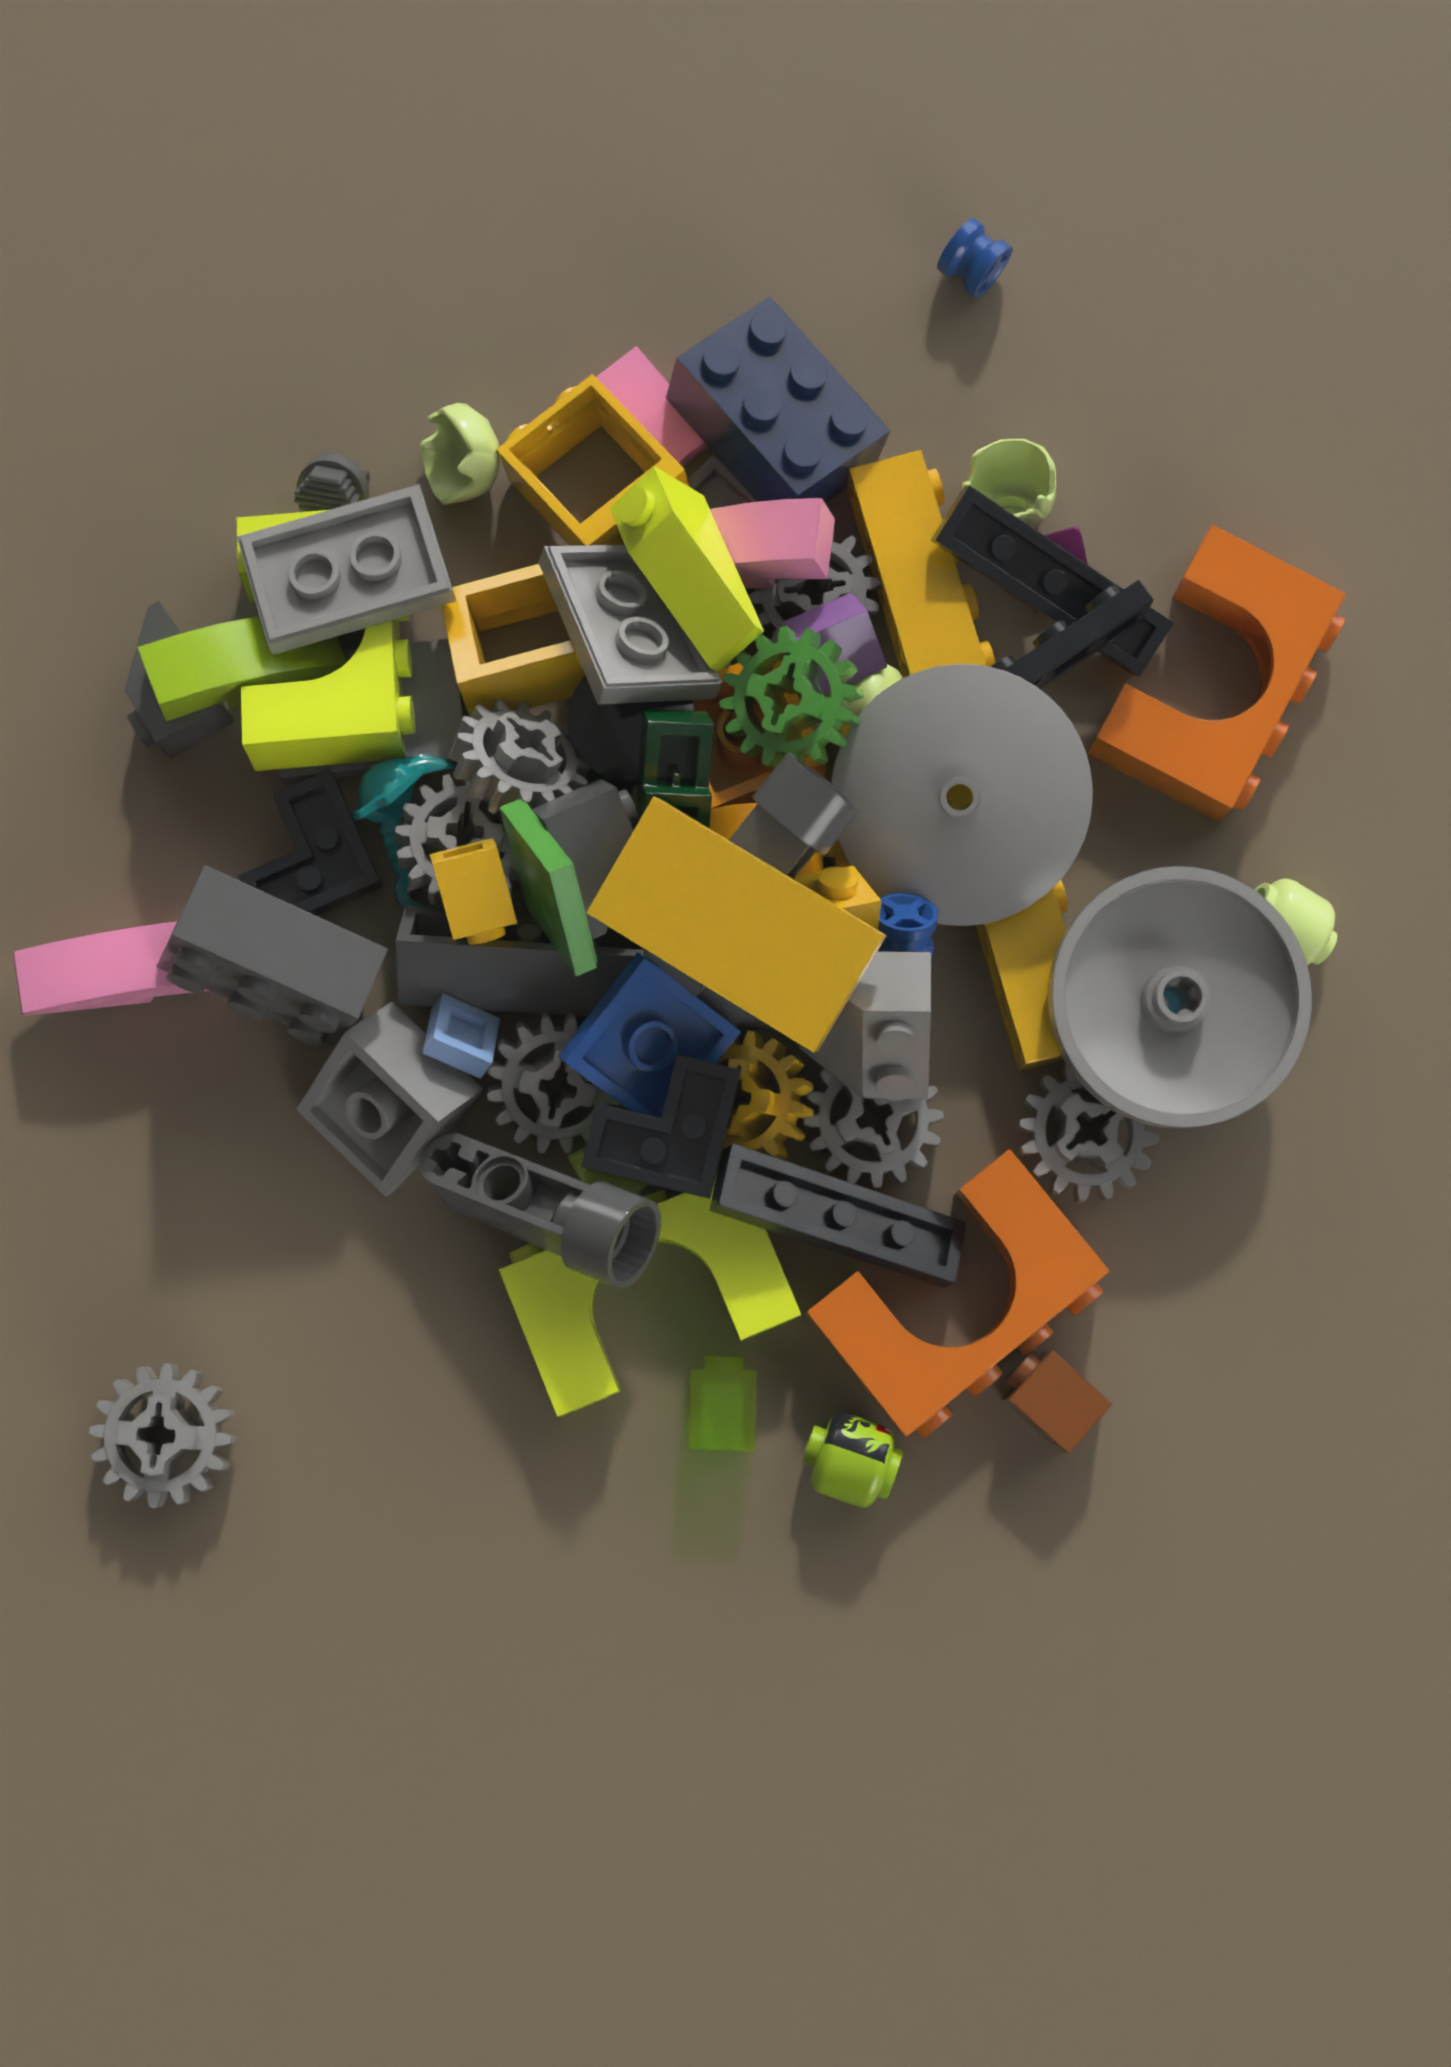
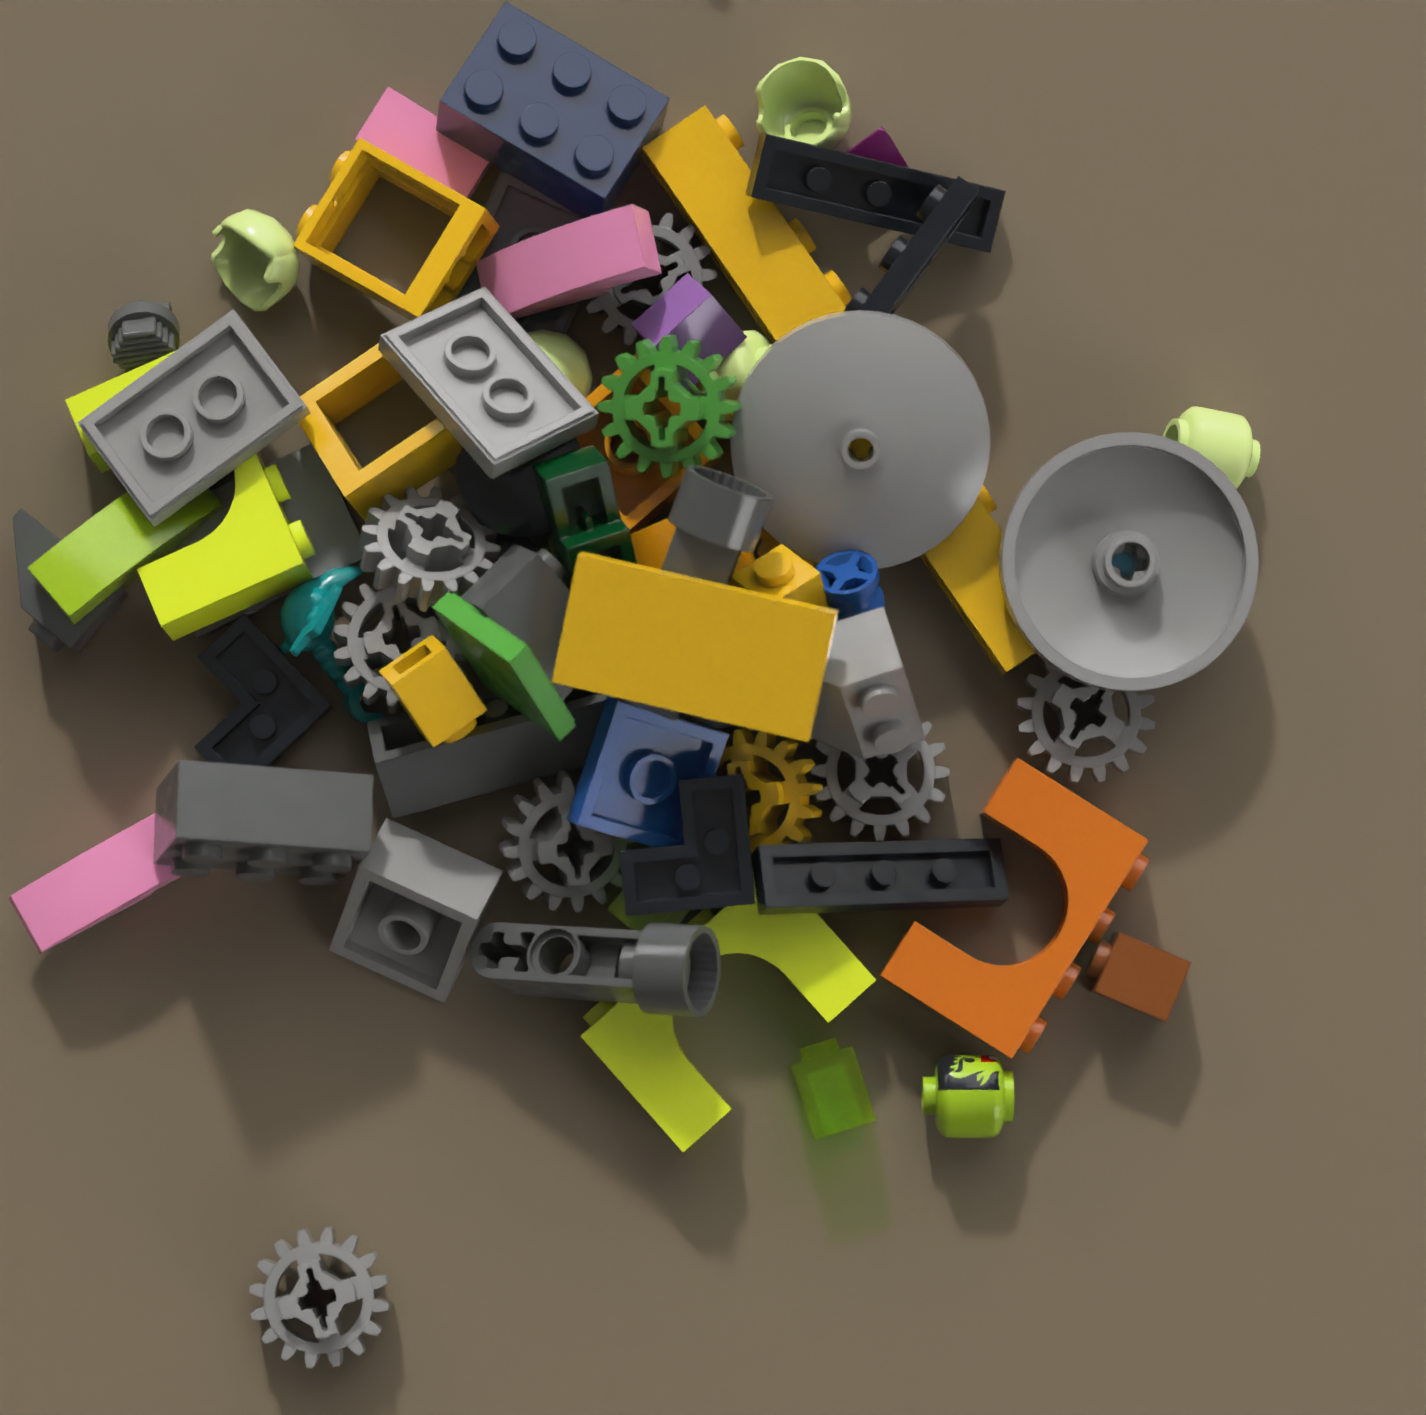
camera: 20 degrees left, 5 degrees up
(461, 1035) = (465, 828): light blue plate -> none
(687, 564) = (525, 307): neon yellow slope -> none
(1284, 621) = (1114, 152): orange arch -> none

